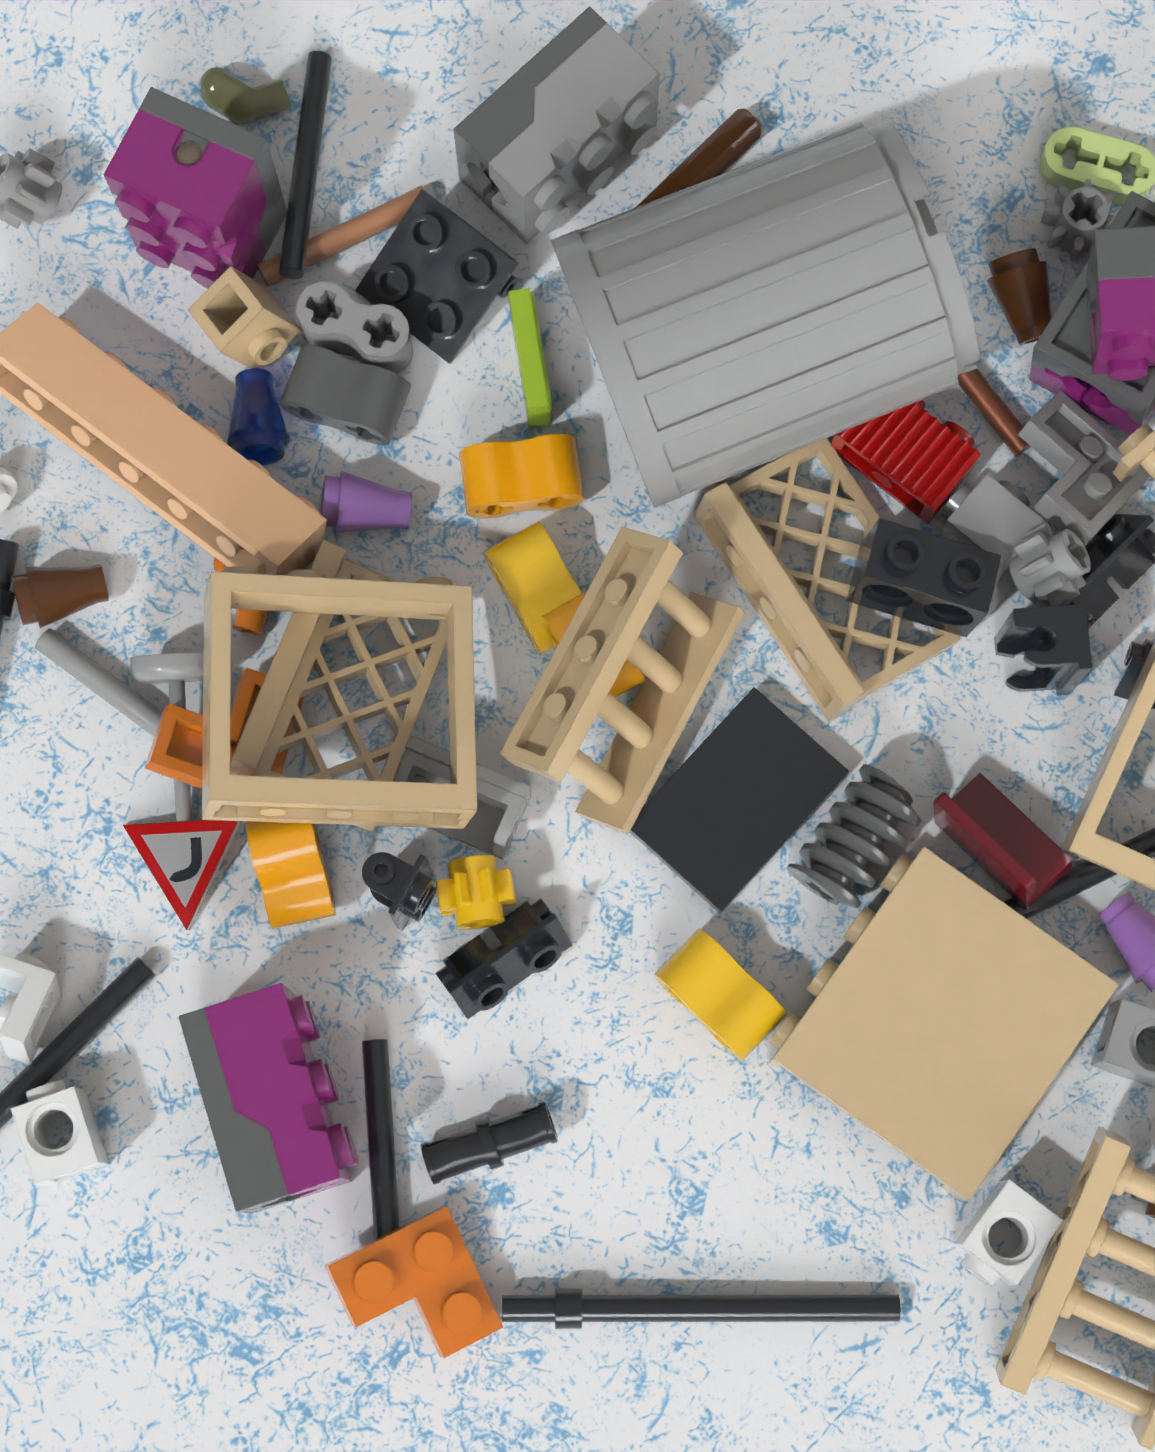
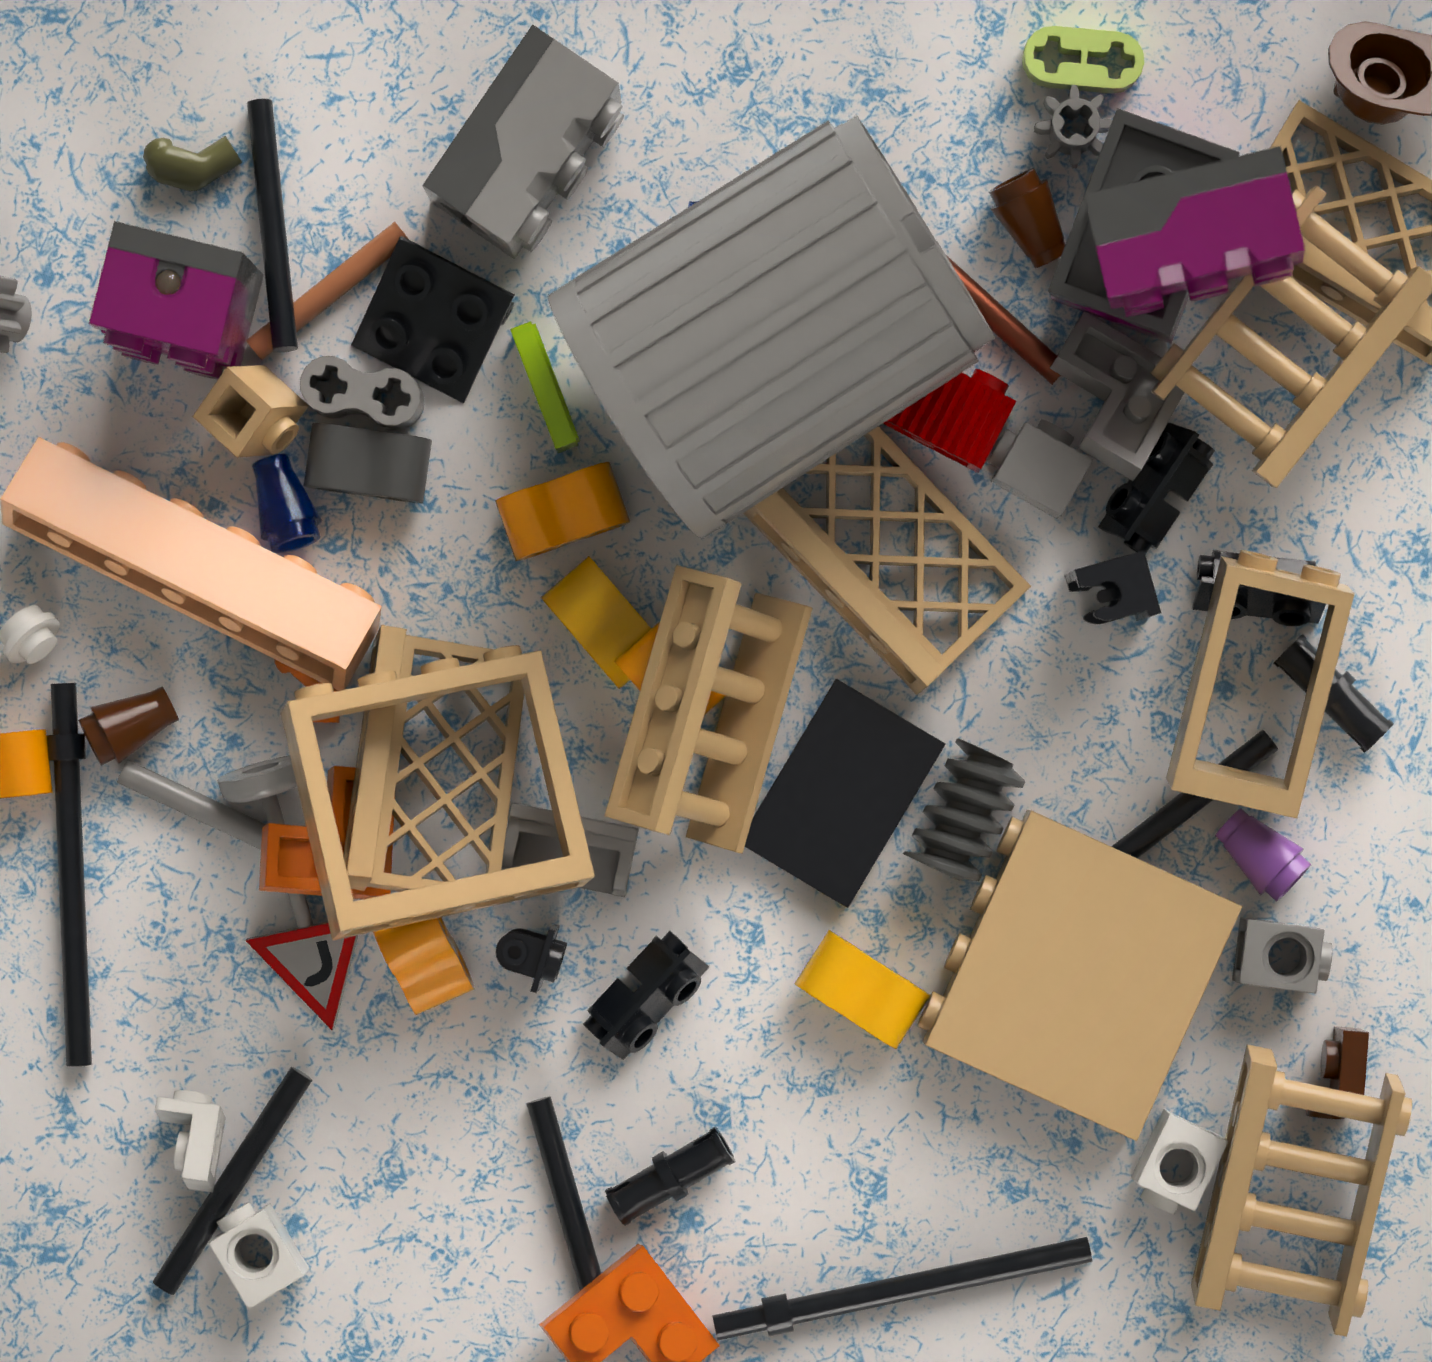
camera: 10 degrees left, 10 degrees up
(268, 1098) = (453, 1184): magenta piece -> none
(363, 505) = (408, 573): medium lavender cone -> none
(475, 892) = (606, 940): yellow gear -> none
(712, 156) = (668, 158): reddish brown axle -> none
(923, 578) = (982, 541): black brick -> none
(1001, 840) = (1107, 782): dark red panel -> none
(1049, 565) = (1103, 508): light grey gear -> none

